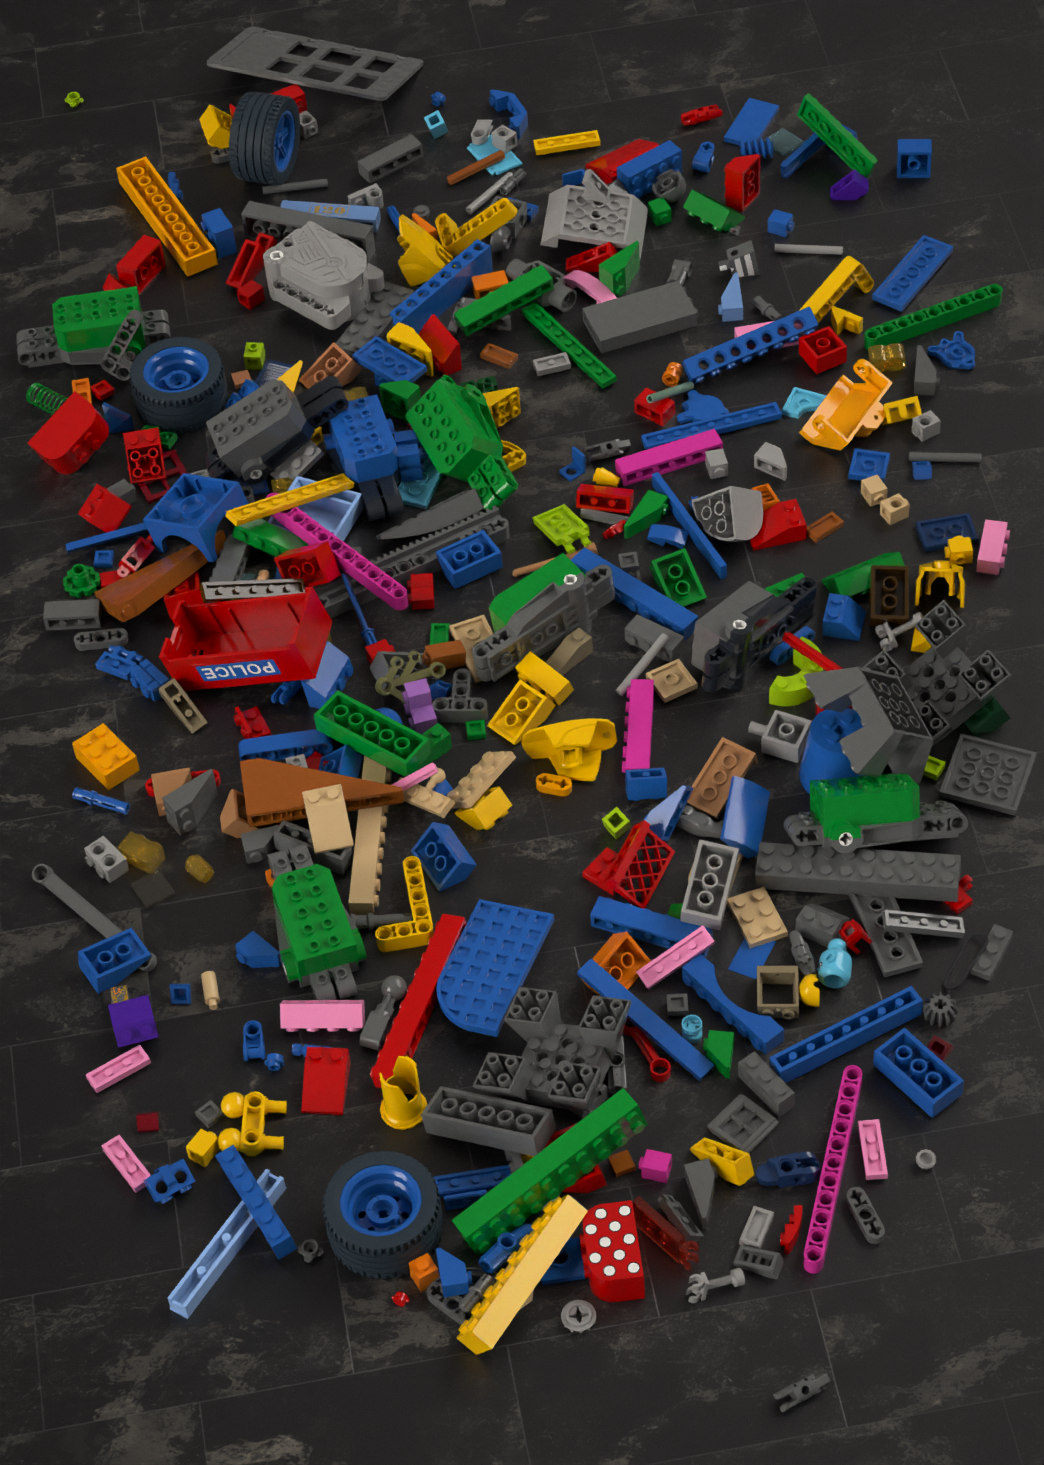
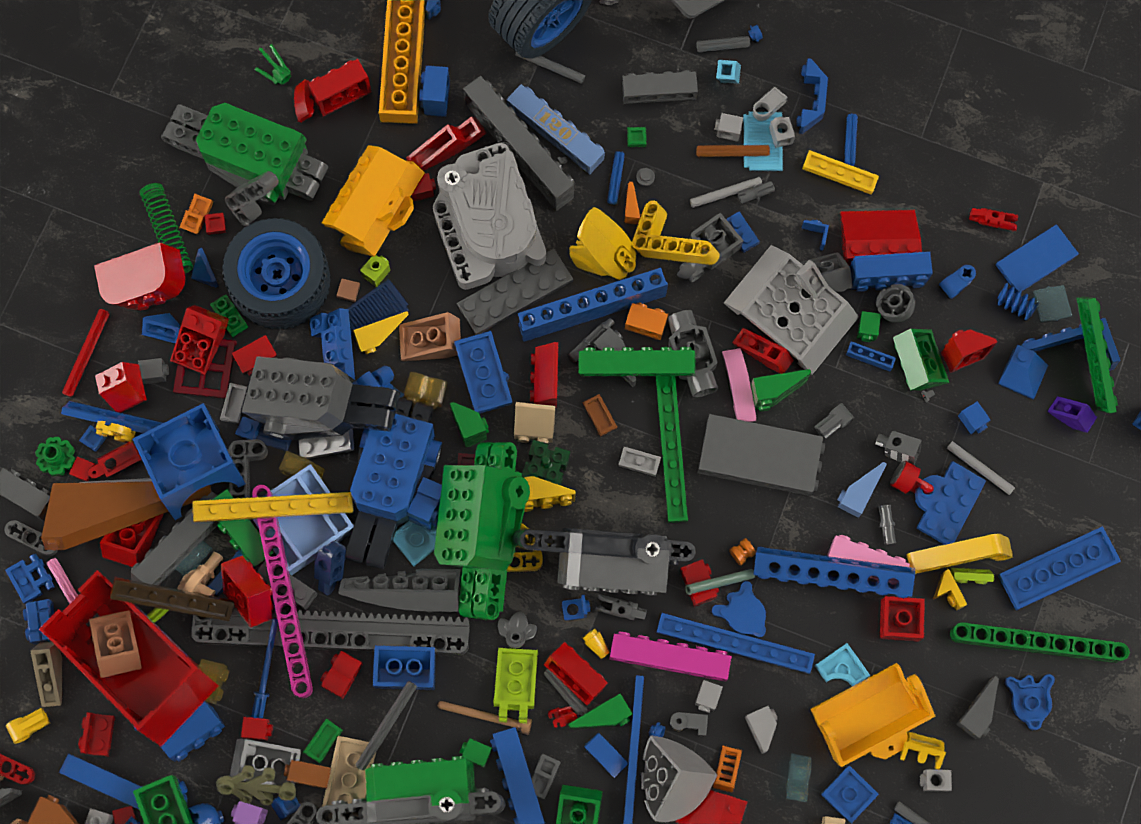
camera: 25 degrees right, 25 degrees up
(56, 512) = (85, 353): none -> red axle
(84, 283) = (281, 74): none -> green plant
(108, 469) = (161, 327): none -> blue slope
(113, 536) = (119, 432): none -> yellow plate
(143, 649) = (62, 579): none -> bright pink axle
(189, 748) = (22, 728): none -> yellow piece
(196, 446) = (247, 355): none -> red brick
(223, 309) = (374, 200): none -> light orange piece
(228, 641) = (115, 644): none -> nougat slope
(361, 527) = (329, 566): none -> dark blue piece
(368, 196) = (604, 125): light grey plate -> none
(395, 195) = (636, 136): none -> green tile
(409, 342) = (514, 353): yellow slope -> none
(417, 117) = (725, 43): none -> dark grey axle
(453, 362) = (534, 422): none -> tan slope
(462, 155) = (729, 126): none -> light grey brick
(482, 622) = (386, 725): none -> dark grey axle
(538, 502) = (516, 627): none -> dark grey plate
(558, 122) = (851, 134): none -> blue axle
(572, 406) = (609, 558): none -> piece
(675, 228) = (870, 356): none -> blue piece
(715, 483) = (689, 721): none -> dark grey leg
(793, 183) = (1023, 372): none -> blue slope
(798, 275) = (943, 499): none -> blue plate
(823, 475) = (798, 778): none -> clear light blue slope
(856, 303) = (980, 576): none -> lime plate
(887, 357) = (959, 666): clear yellow brick -> none

